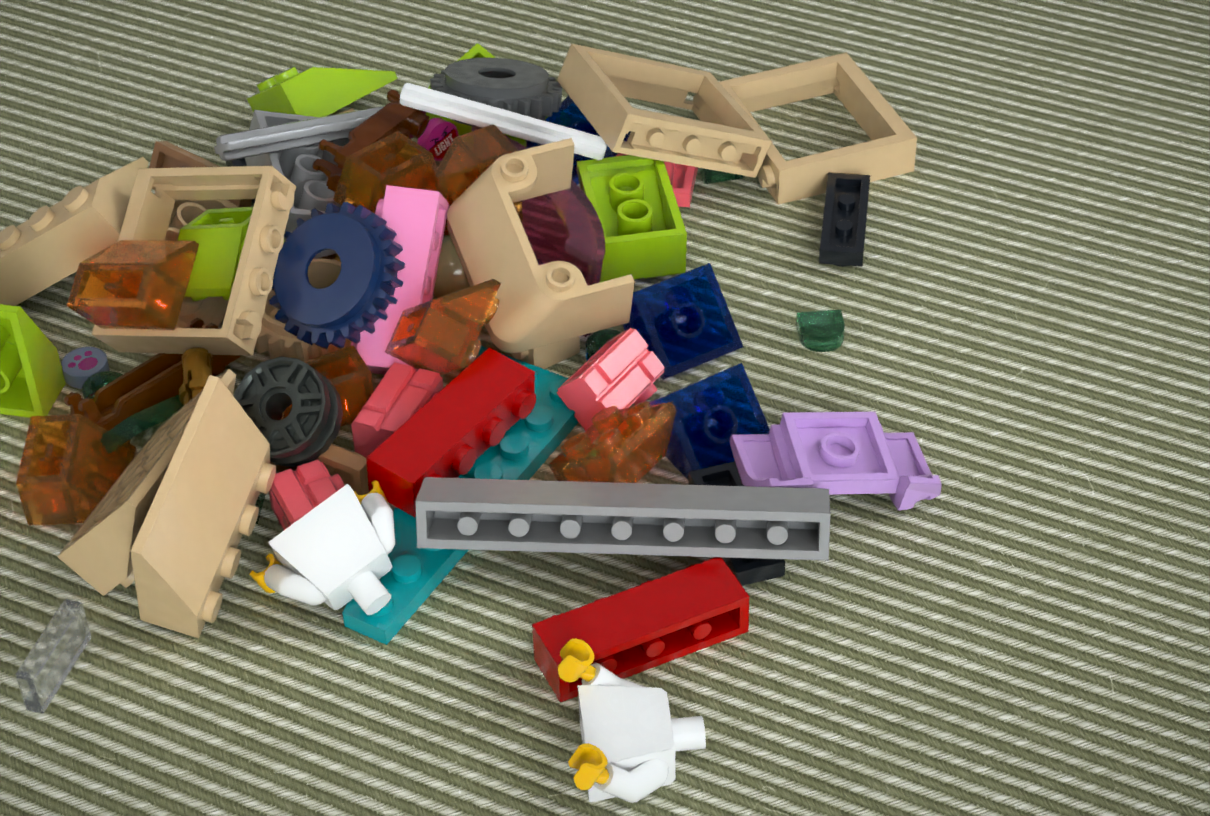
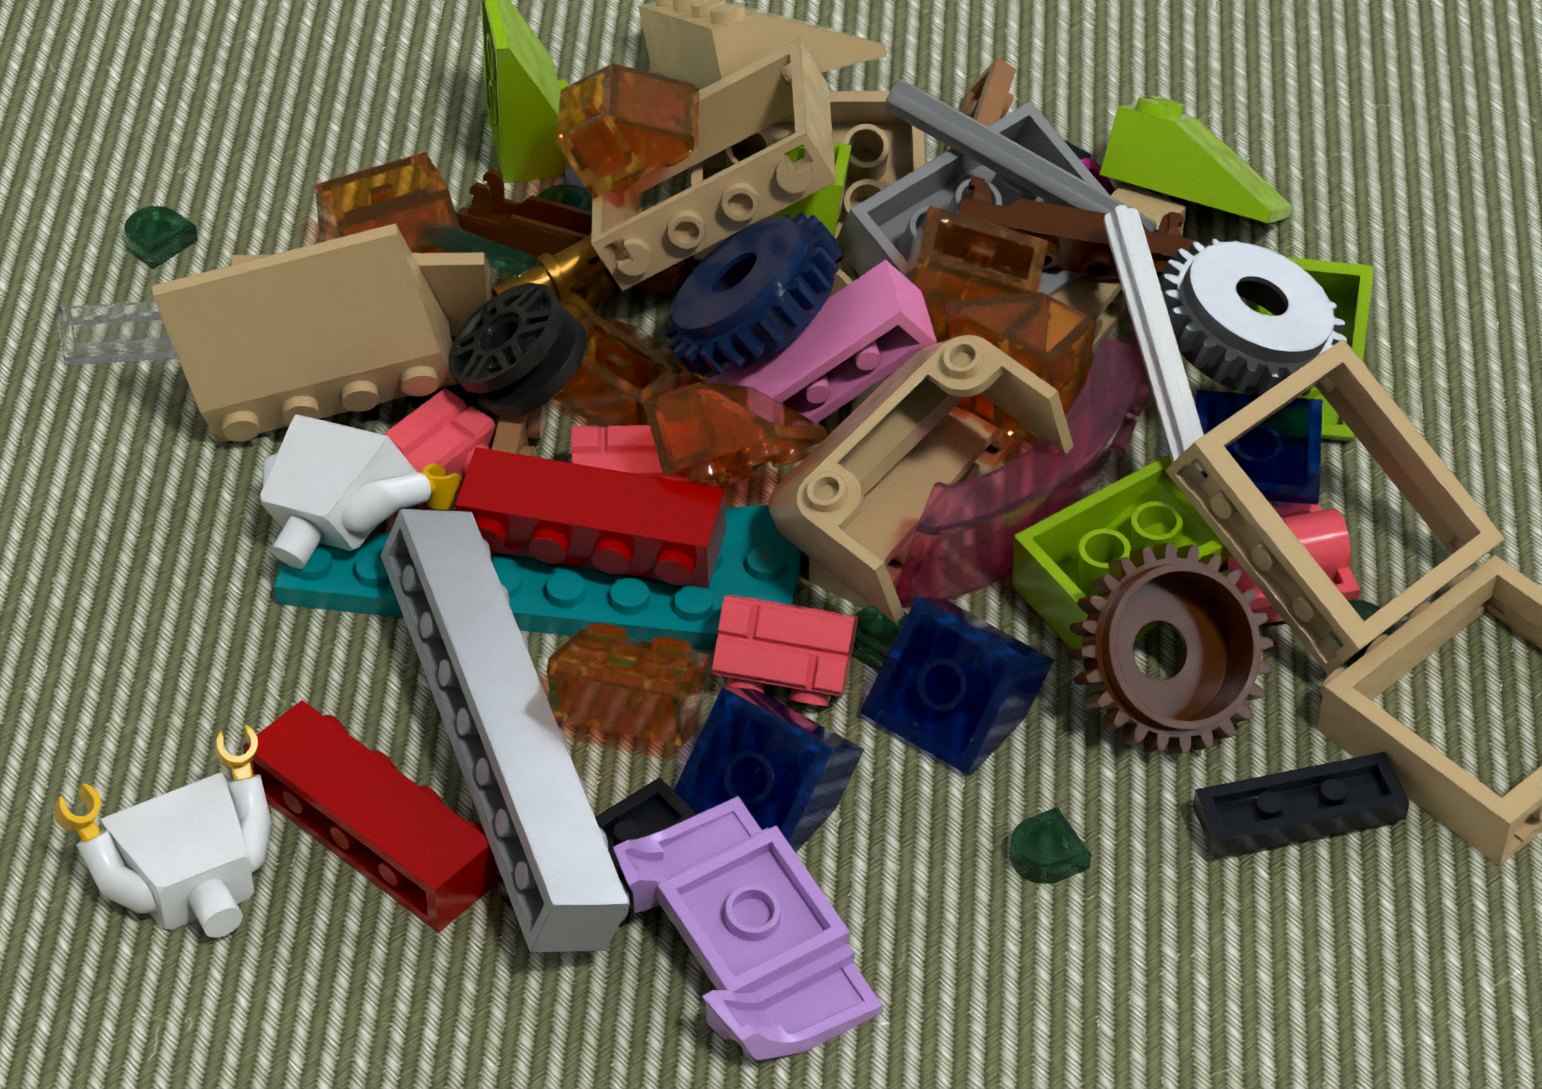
camera: 65 degrees right, 5 degrees up
(723, 213) = (1217, 638): none -> reddish brown gear

